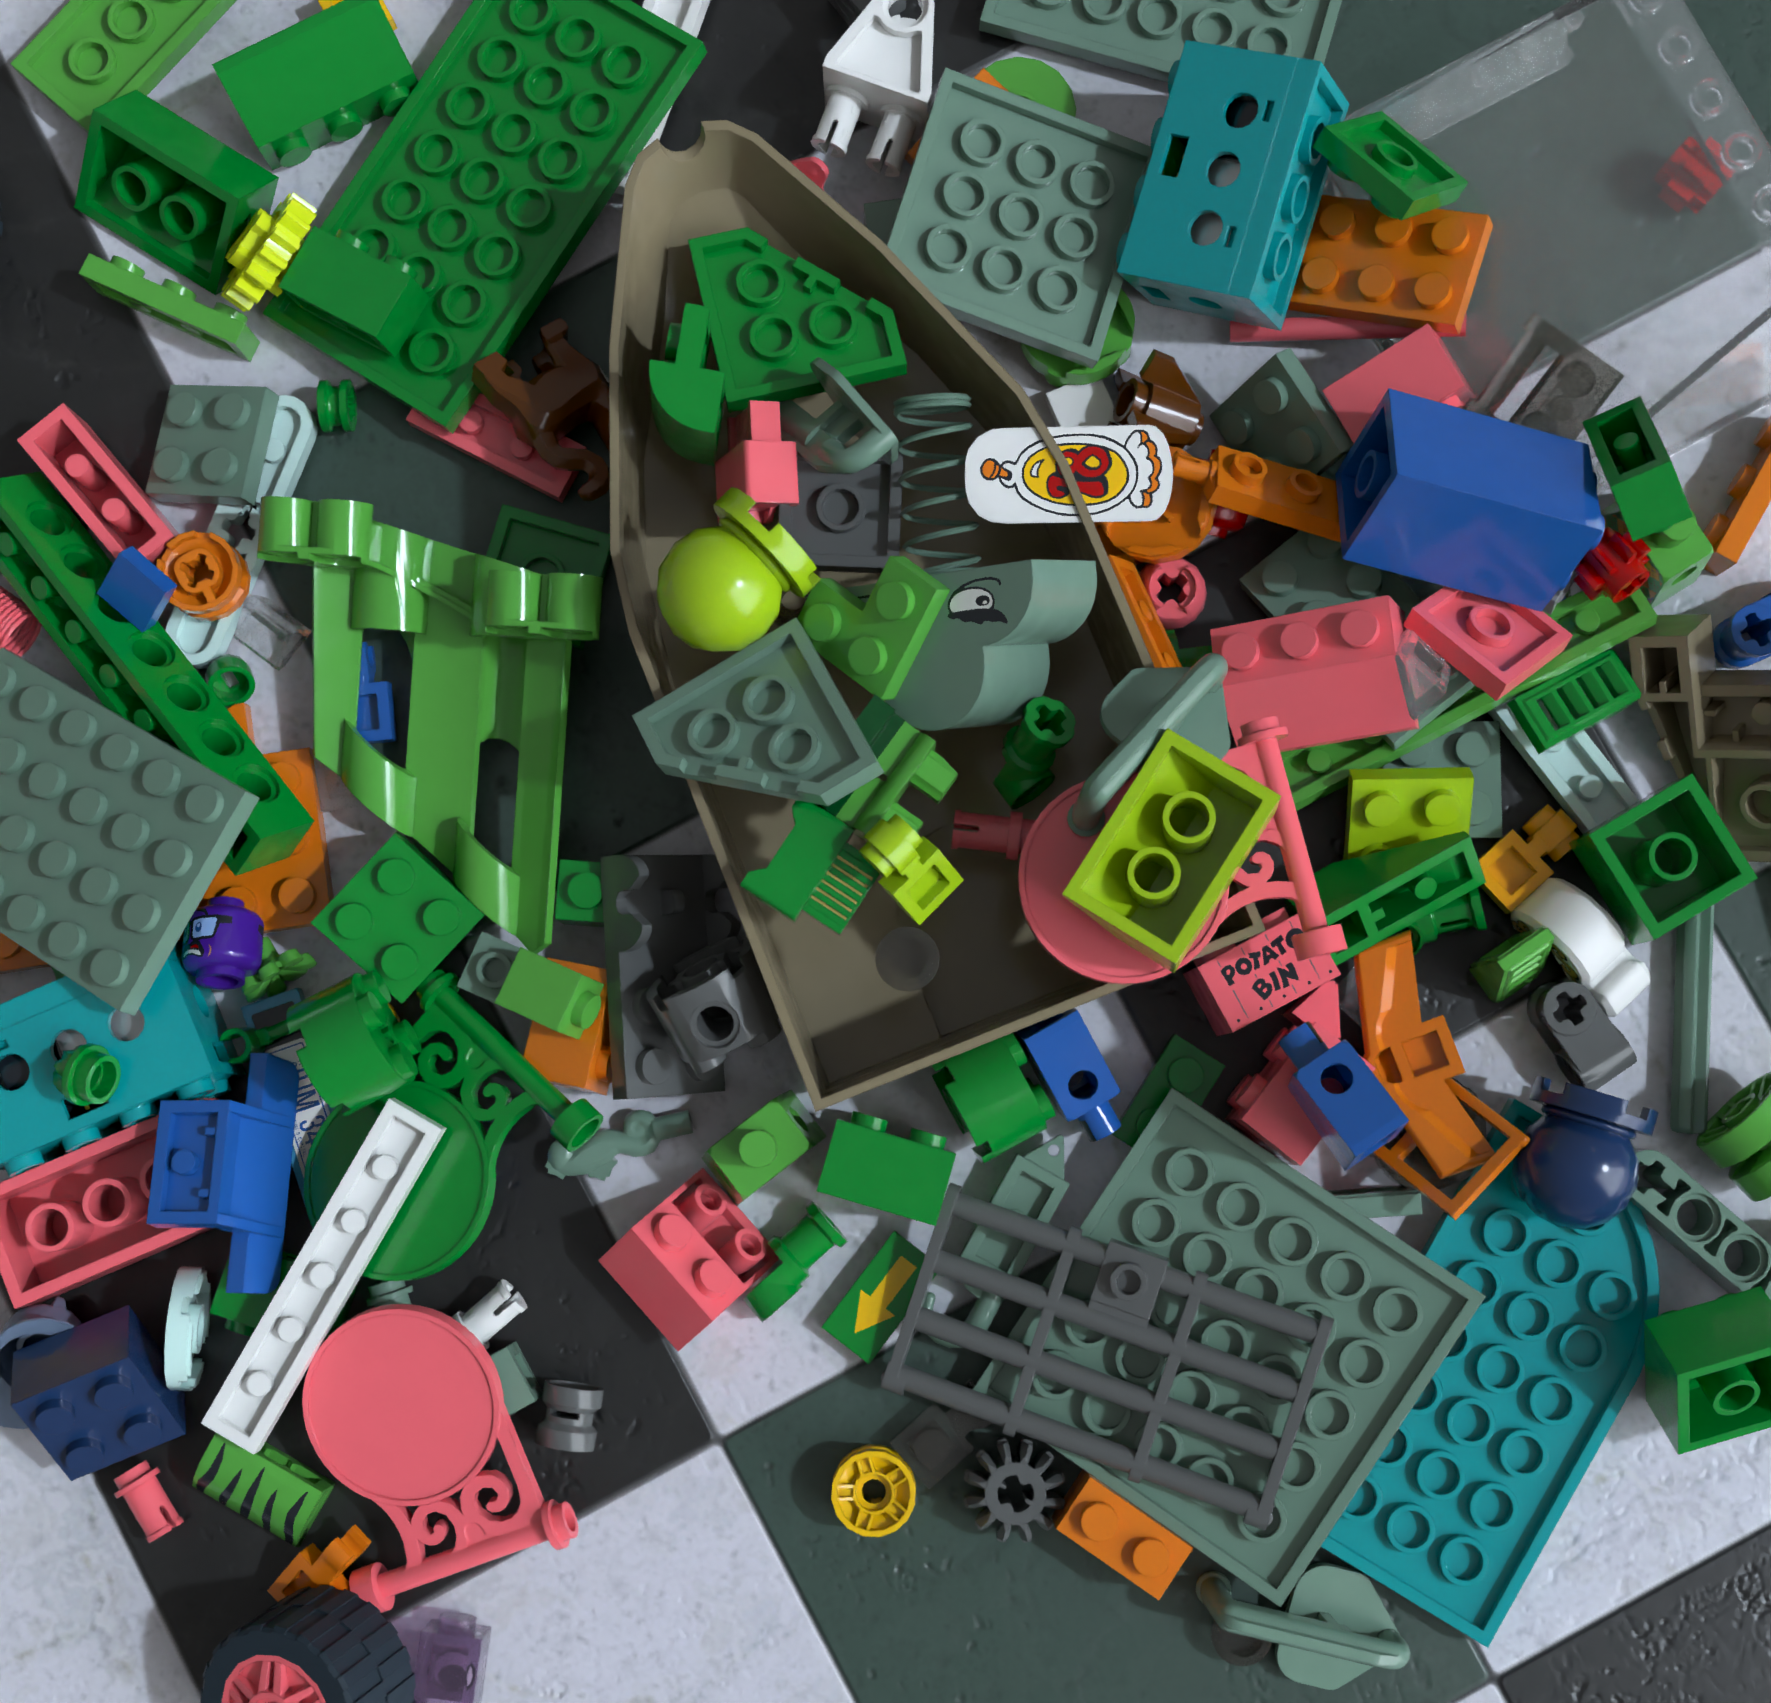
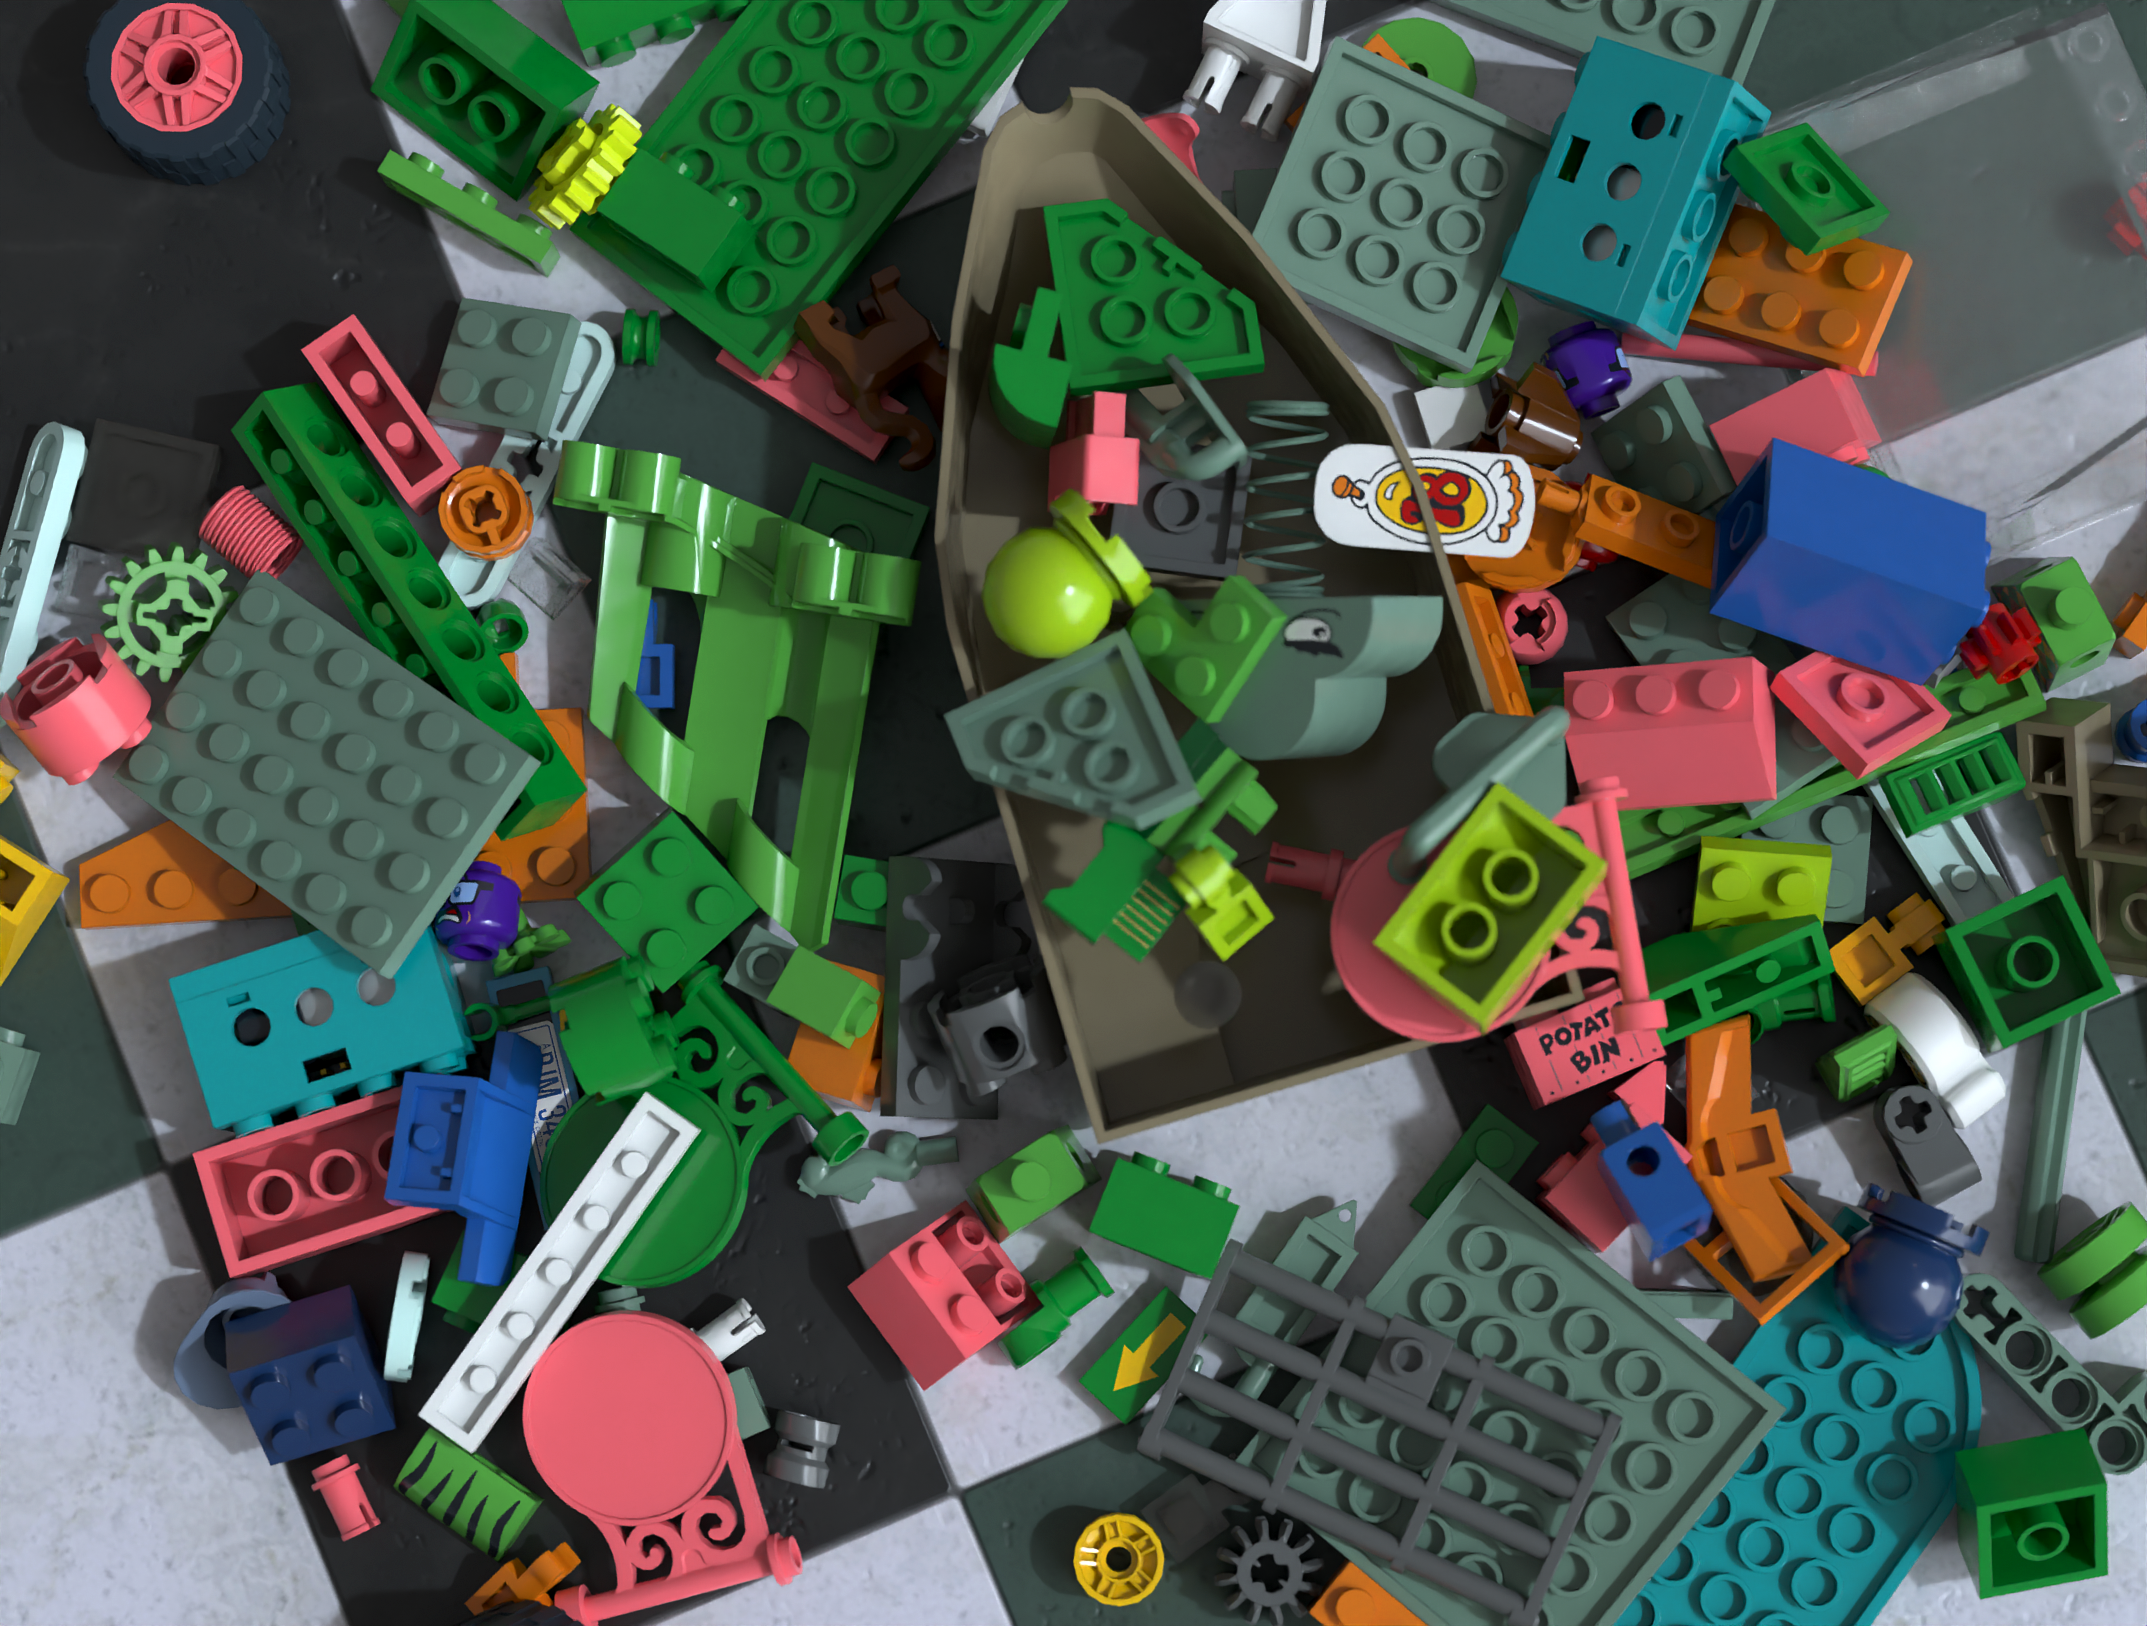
camera: 10 degrees right, 0 degrees up
(87, 1074) = (335, 1036): green plate -> none
(137, 589) = (419, 524): blue tile -> none
(992, 1096) = (1283, 1149): green brick -> none
(1031, 750) = (1359, 786): green connector -> none
(1056, 1052) = (1359, 1106): blue torso -> none
(1204, 354) = (1589, 367): none -> dark purple head
(1421, 673) = (1779, 741): clear slope -> none
(1565, 394) = (1966, 458): clear smoke plate -> none
(1637, 469) = (2033, 544): green brick -> none

